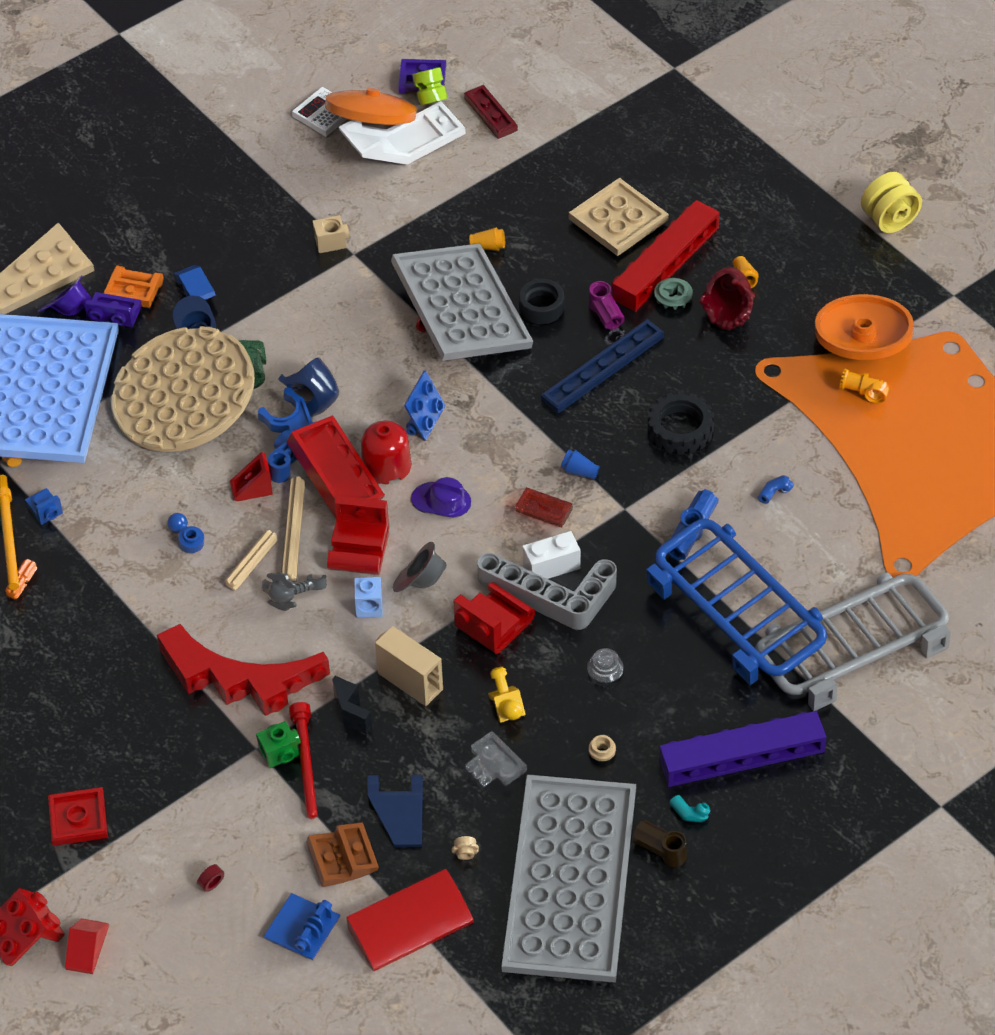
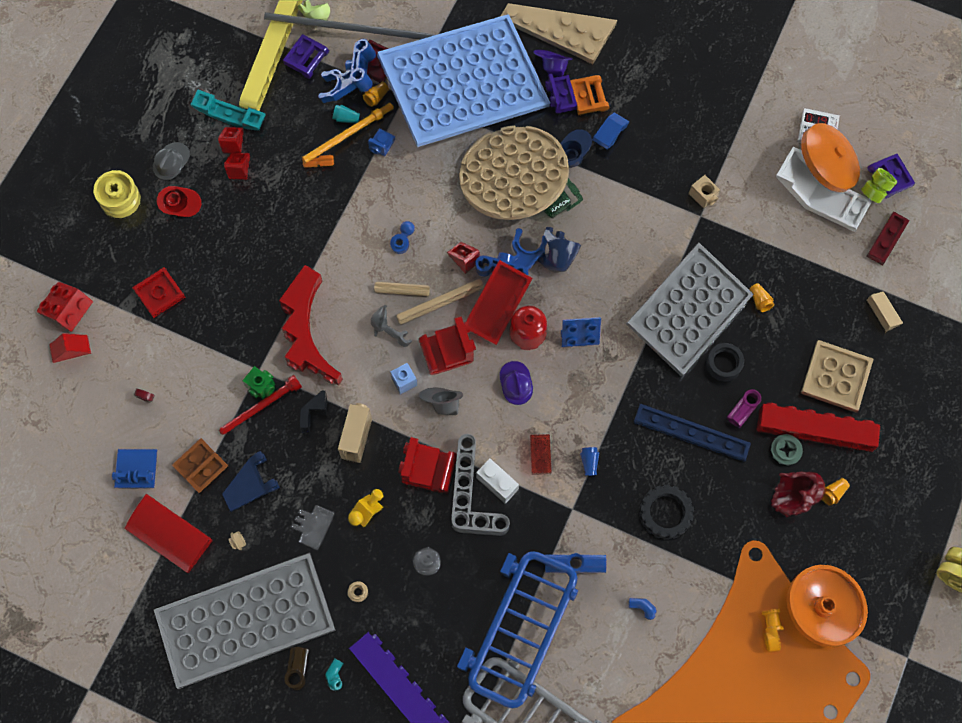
camera: 60 degrees right, 20 degrees up
(570, 150) = (884, 311): none -> tan slope

